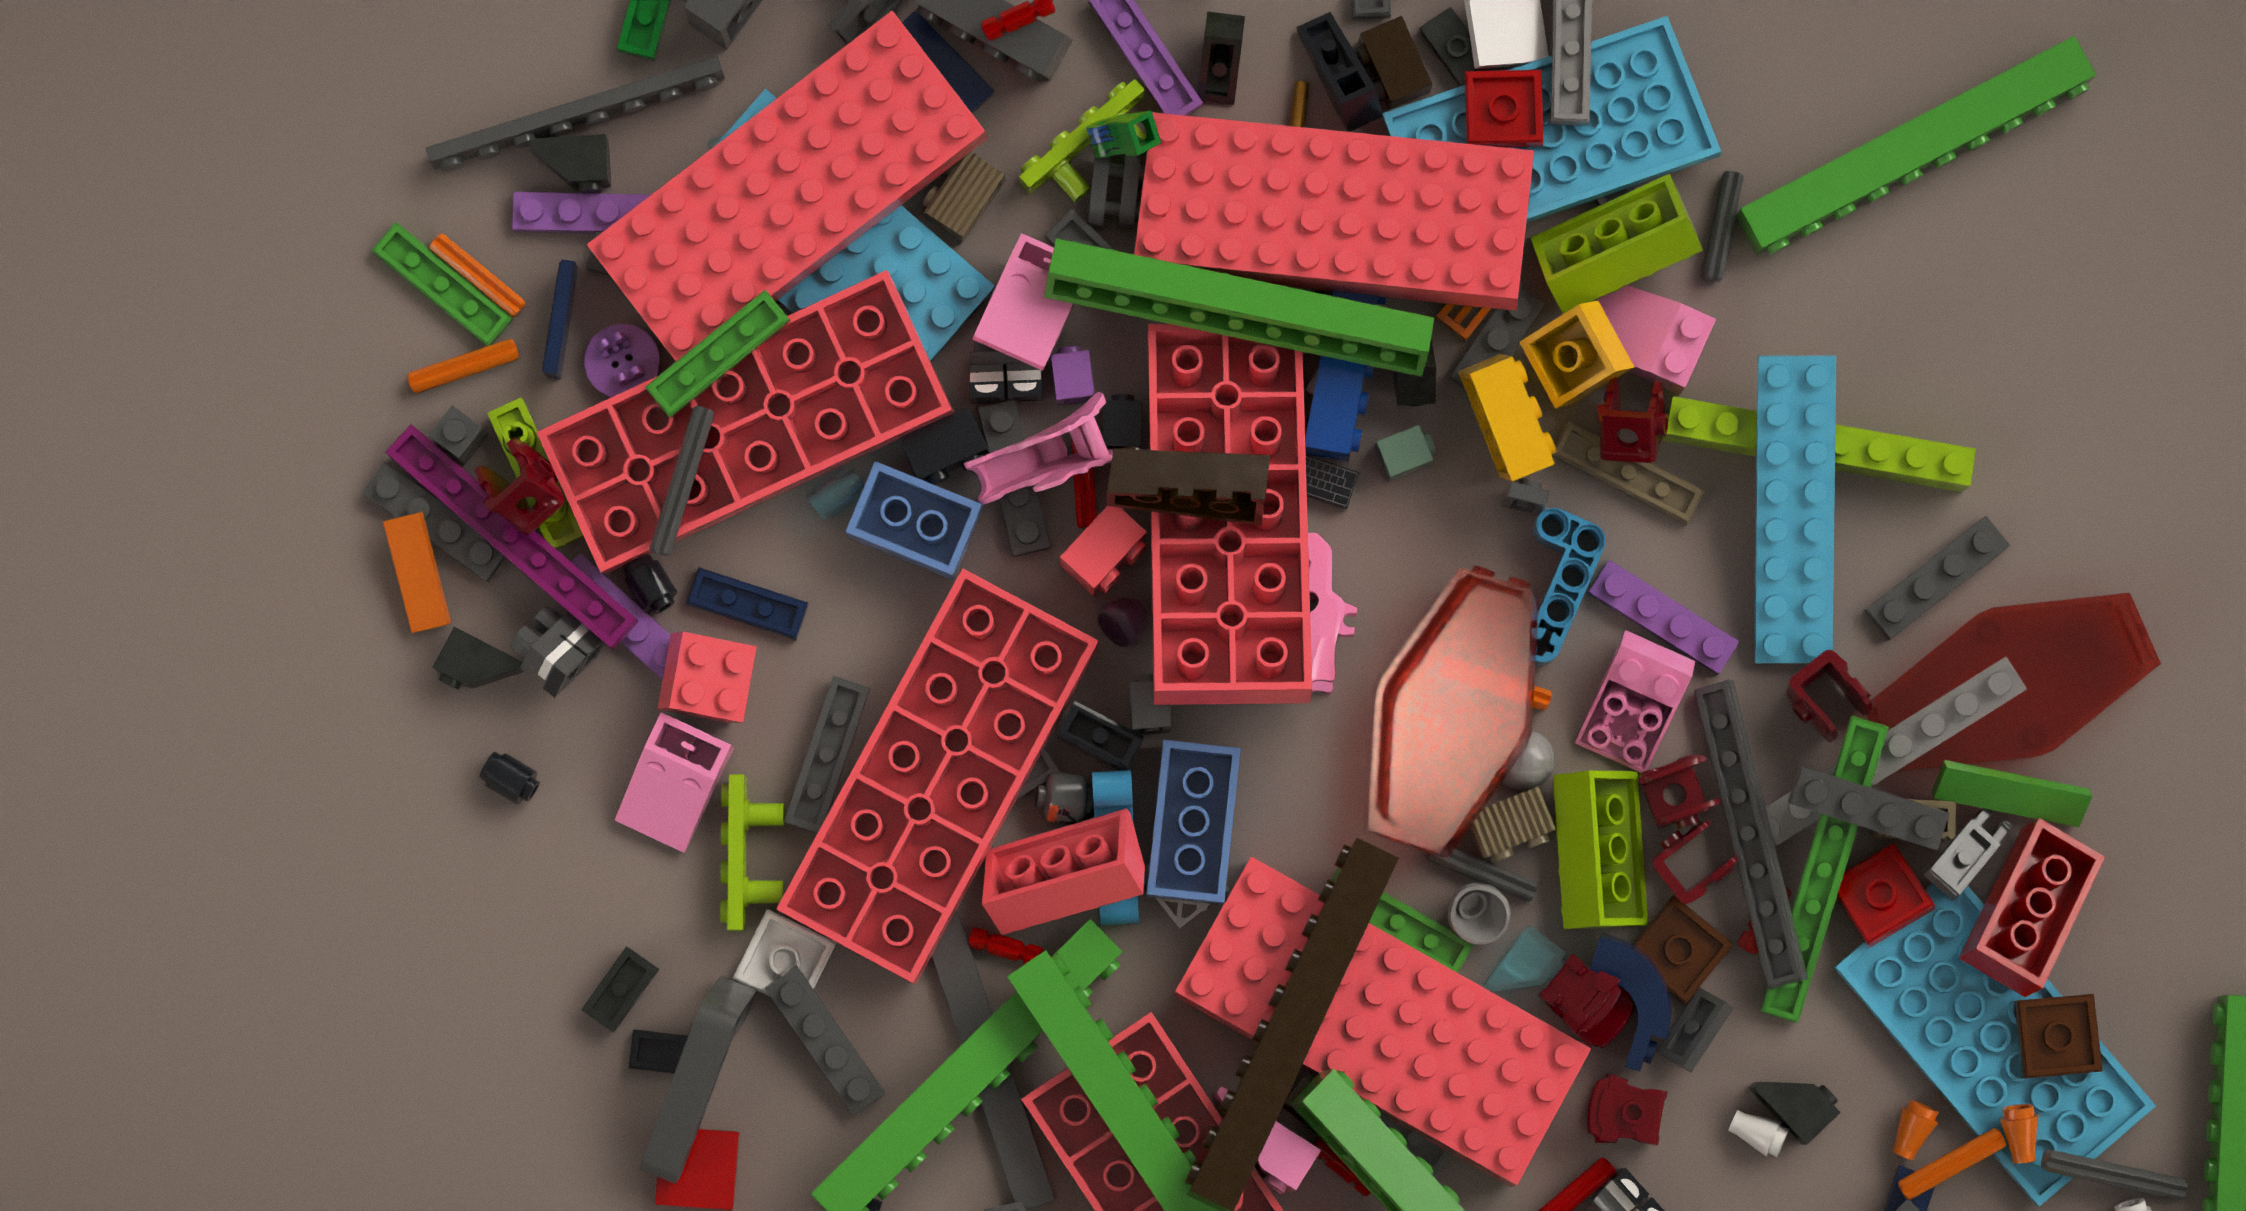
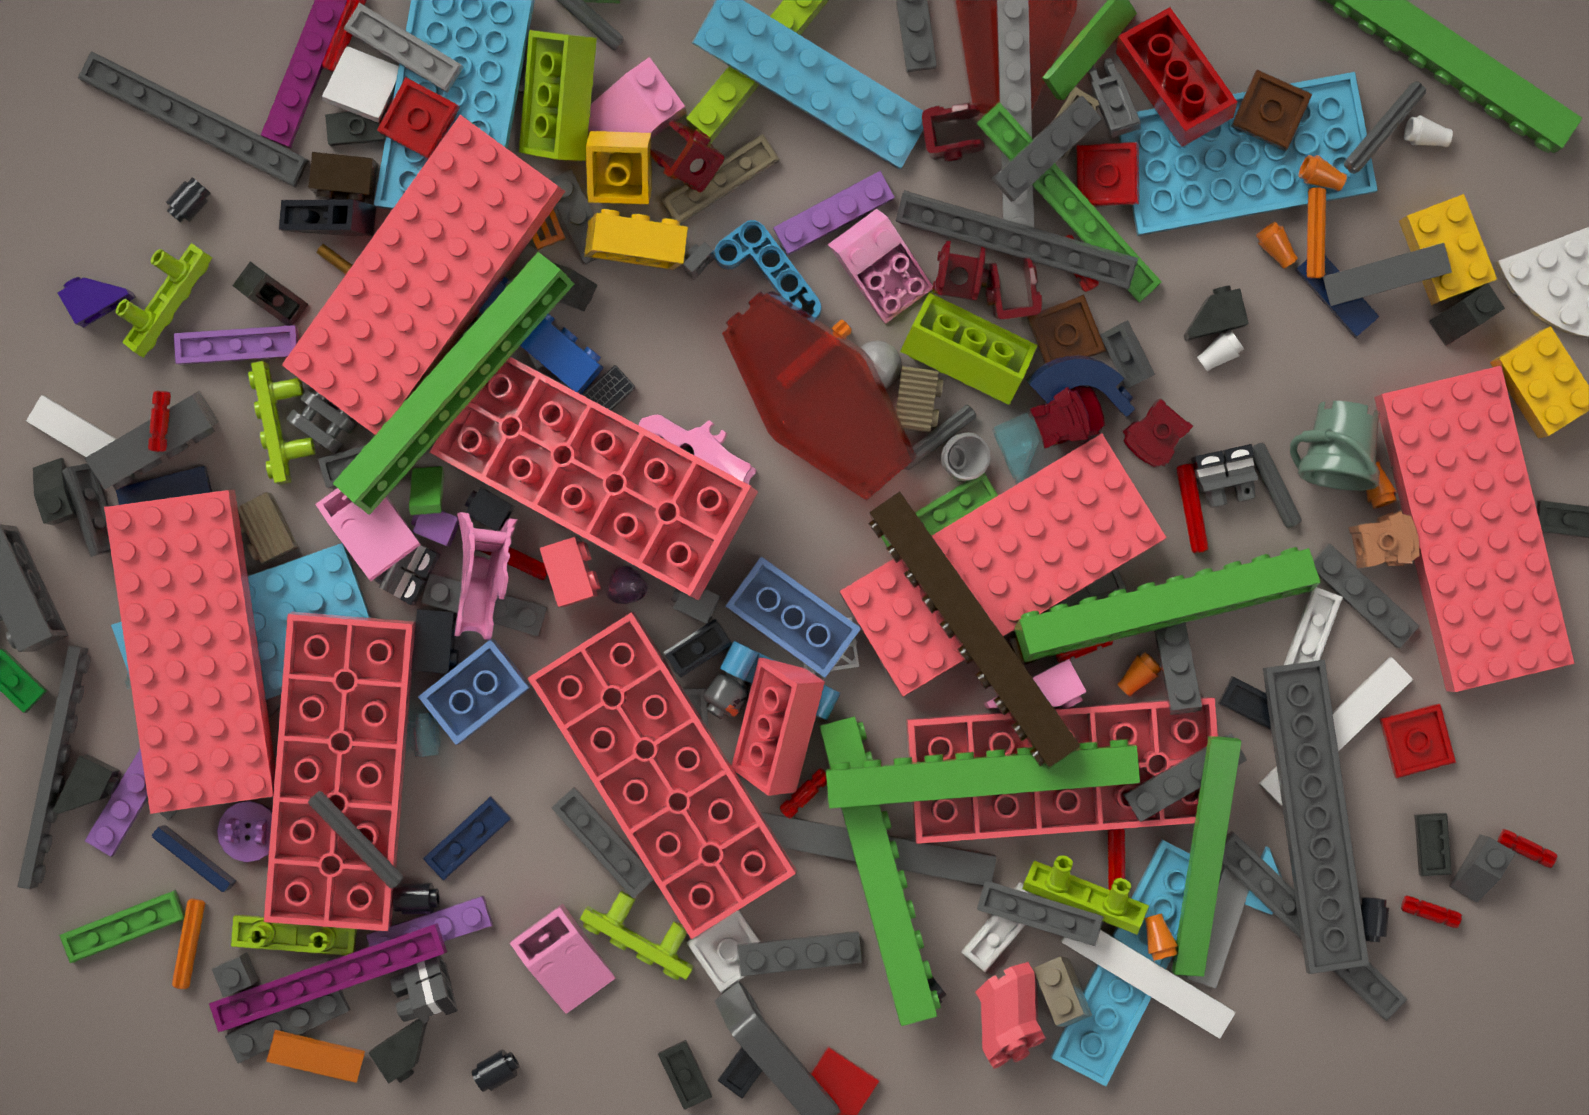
camera: 60 degrees left, 5 degrees up
(477, 275) = (129, 898): orange axle -> none
(535, 481) = (301, 965): dark red piece -> none
(706, 677) = (503, 896): coral brick -> none
(717, 354) = (280, 765): bright green tile -> none
(1104, 344) = (426, 490): none -> bright green tile
(1119, 136) = (285, 398): green leg -> none
(1190, 483) = (559, 488): dark brown wedge -> none
(1405, 452) = (620, 324): sand green brick -> none

